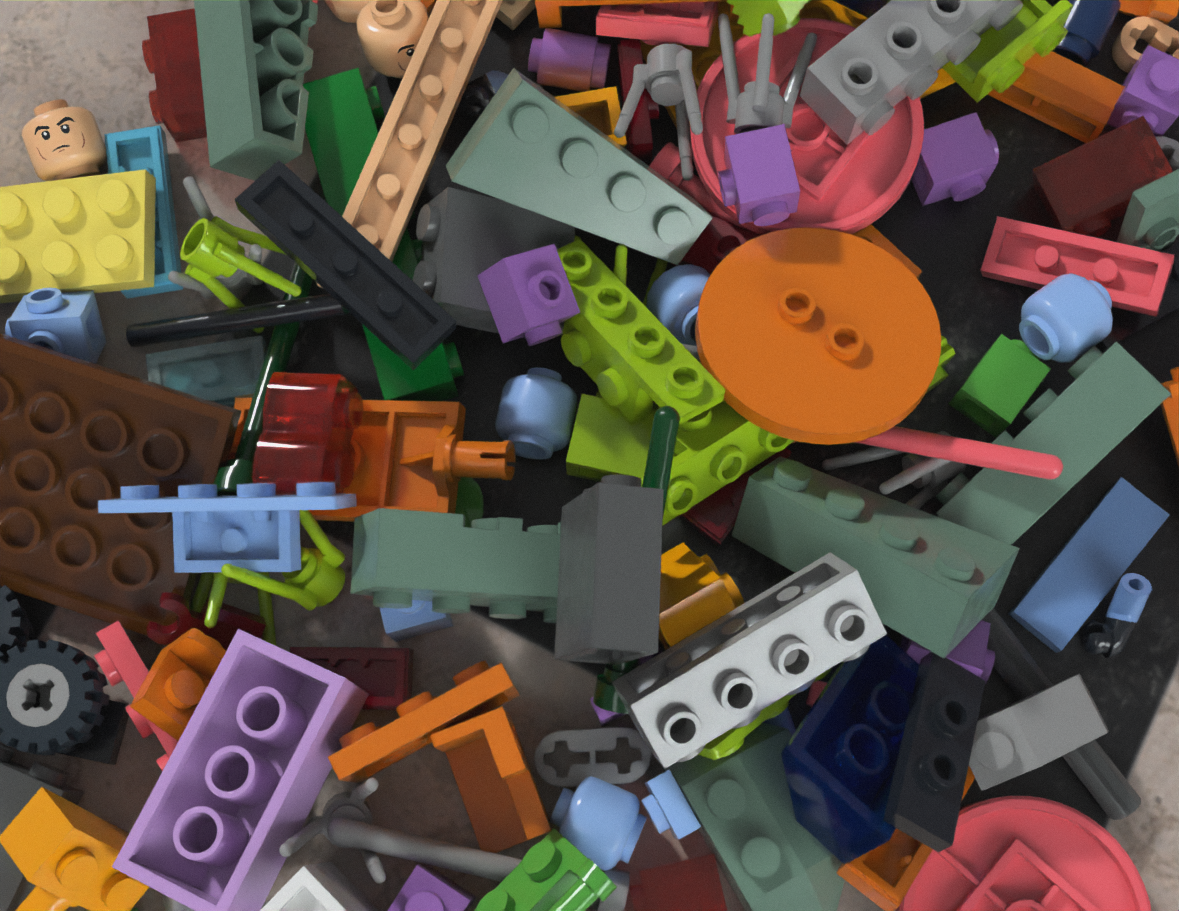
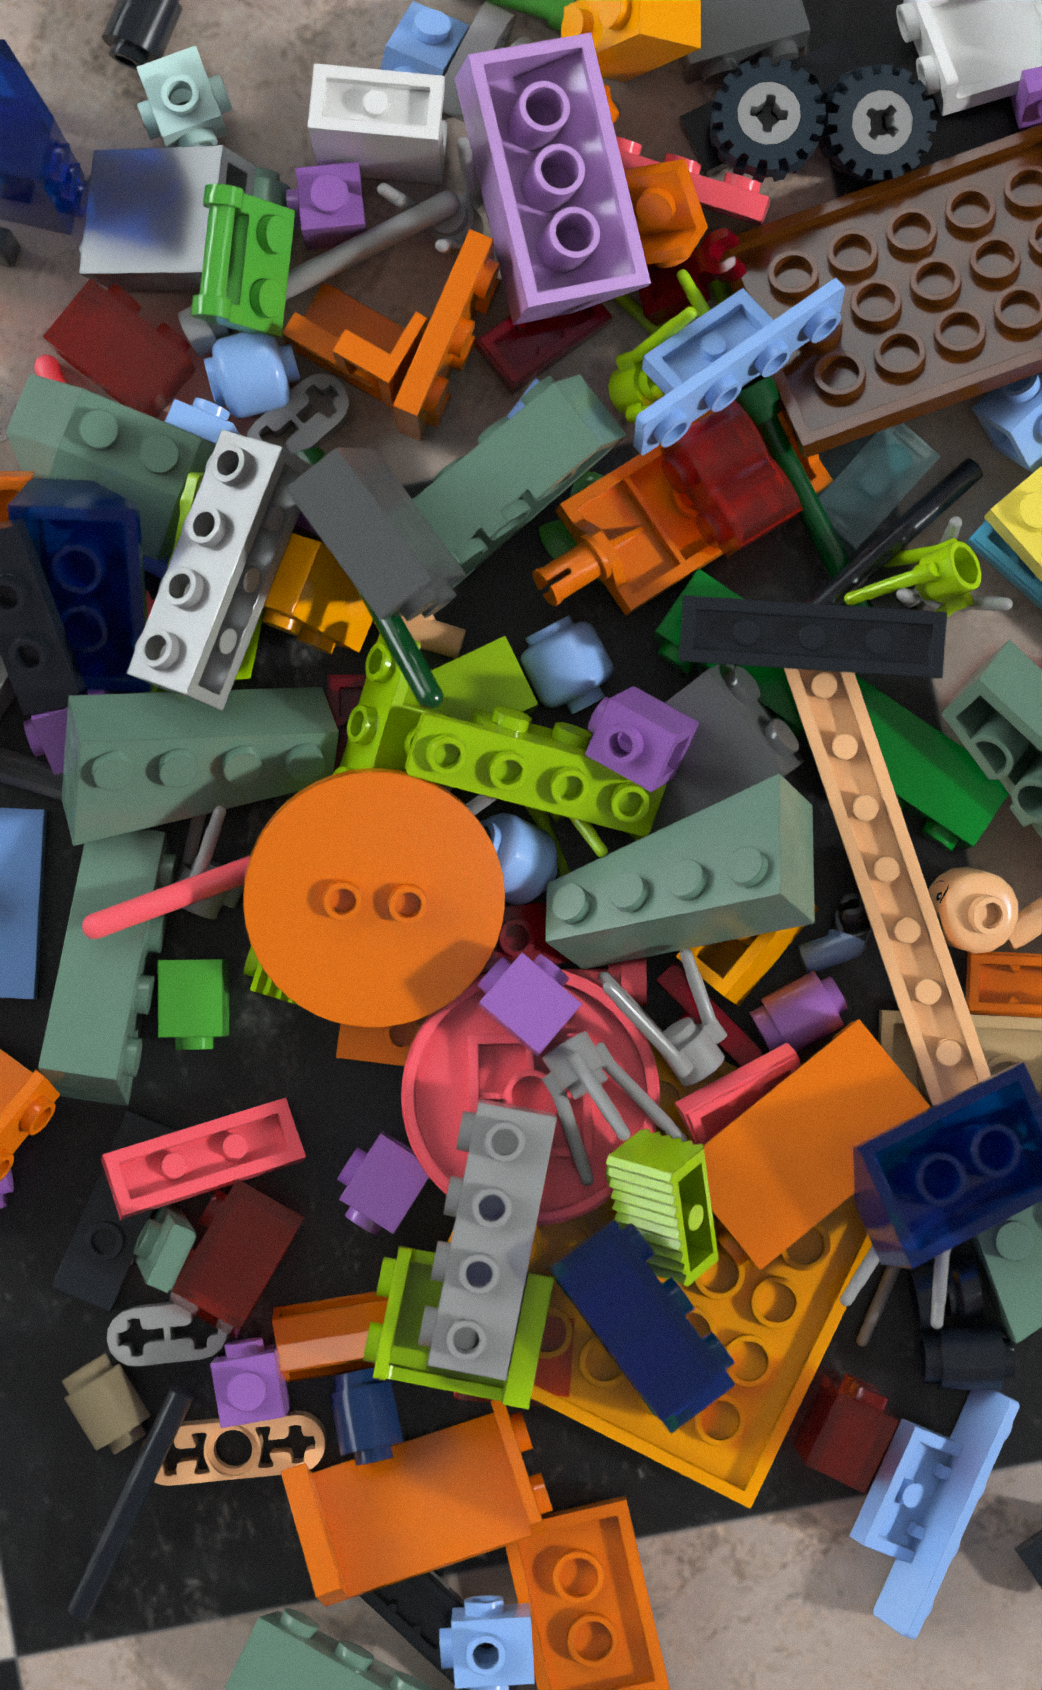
camera: 140 degrees right, 10 degrees up
(1066, 318) = (175, 1087): light blue head -> none

